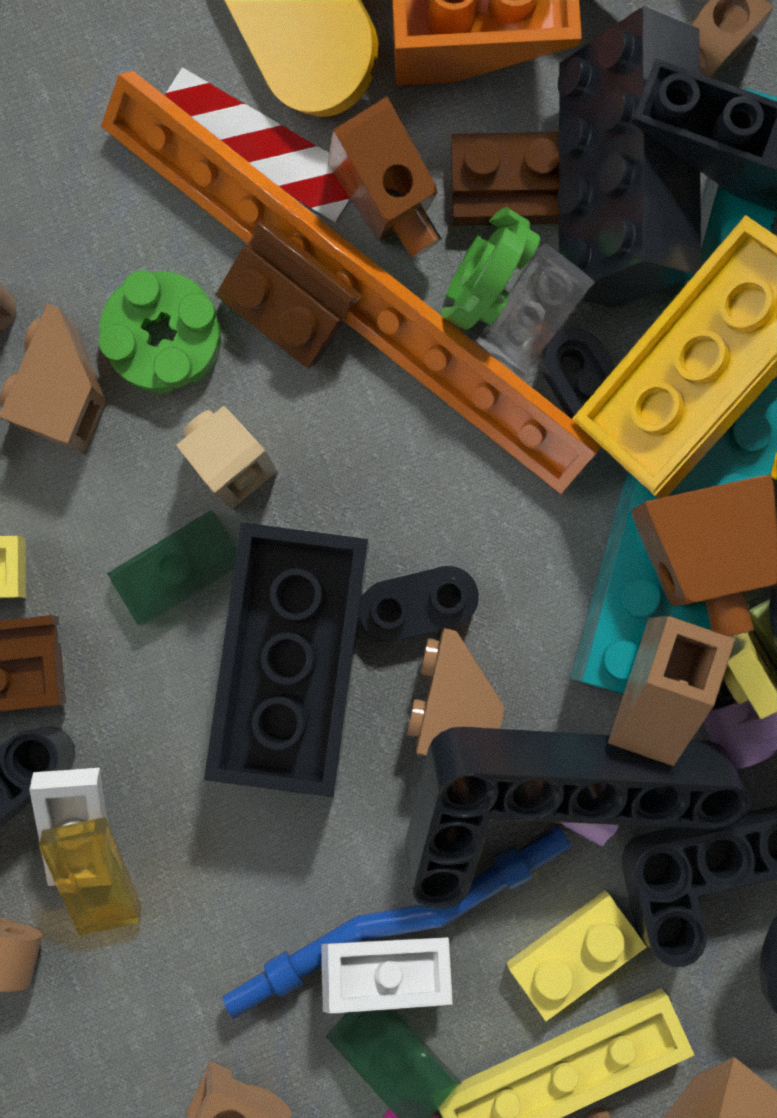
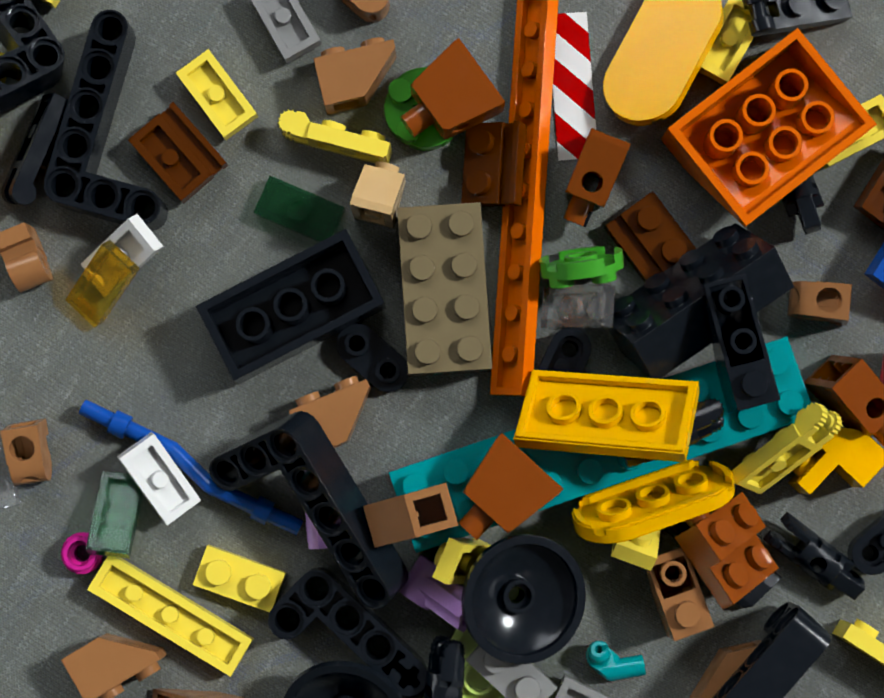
camera: 55 degrees right, 0 degrees up
(116, 463) = (332, 137): none -> light yellow hinge
(167, 277) = (452, 95): none -> dark orange torso
(398, 456) = (444, 289): none -> dark tan brick

